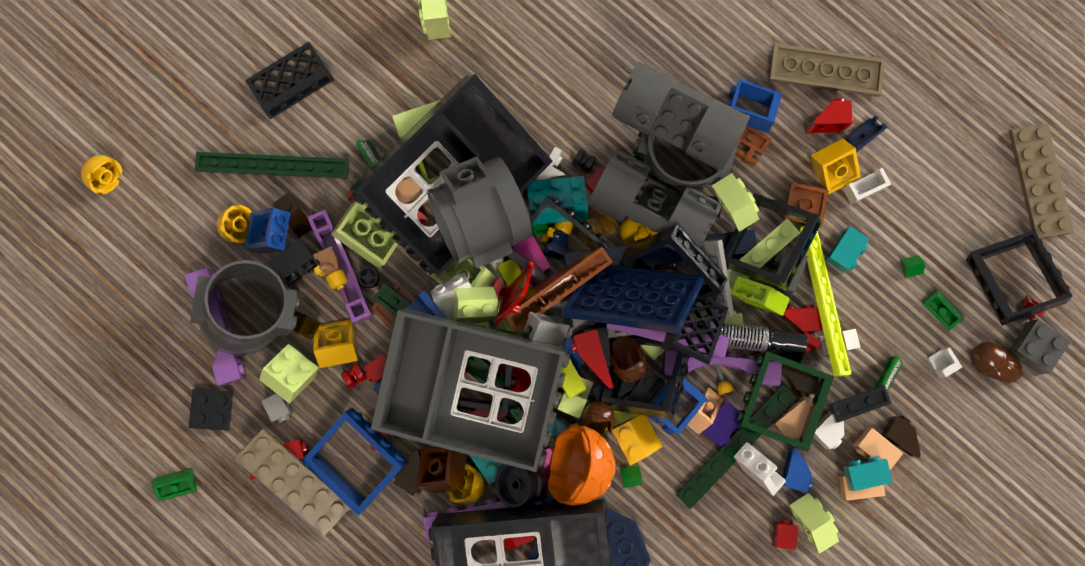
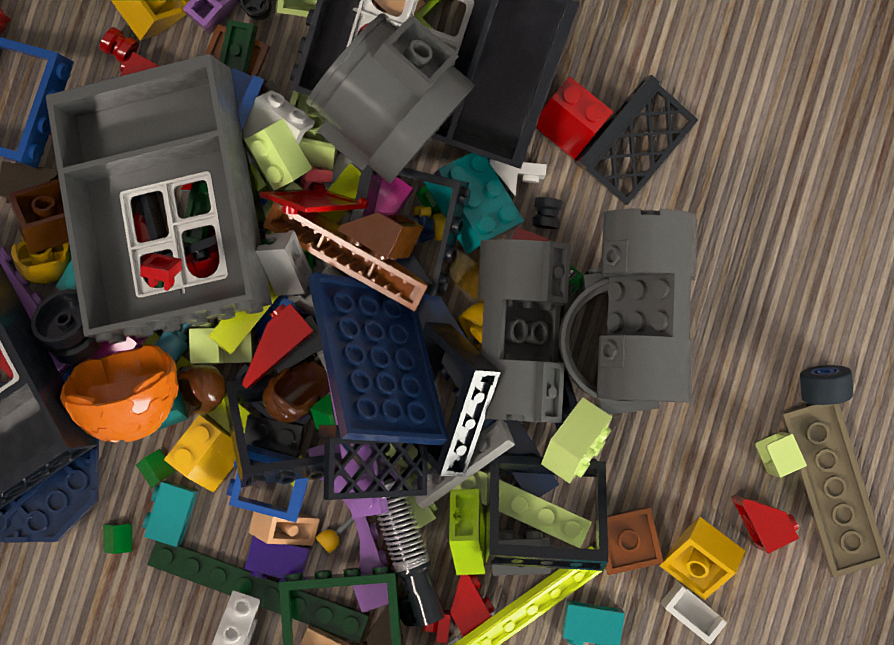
camera: 75 degrees right, 5 degrees up
(519, 400) = (161, 268): none -> red tile
(535, 116) = (572, 118): none -> red slope
(548, 90) = (622, 120): none -> black fence
(558, 256) = (384, 233): none -> reddish brown slope
(651, 347) = (323, 412): none -> green slope
(664, 478) = (170, 512): none -> teal brick
(664, 521) = (117, 538): none -> green slope
(755, 142) = (685, 425): dark orange plate -> none
(760, 95) = (752, 402): blue window -> none
(764, 45) = (826, 385): none -> black wheel
(794, 90) = (780, 454): none -> yellowish green panel
(865, 133) = (766, 578): dark blue hinge -> none

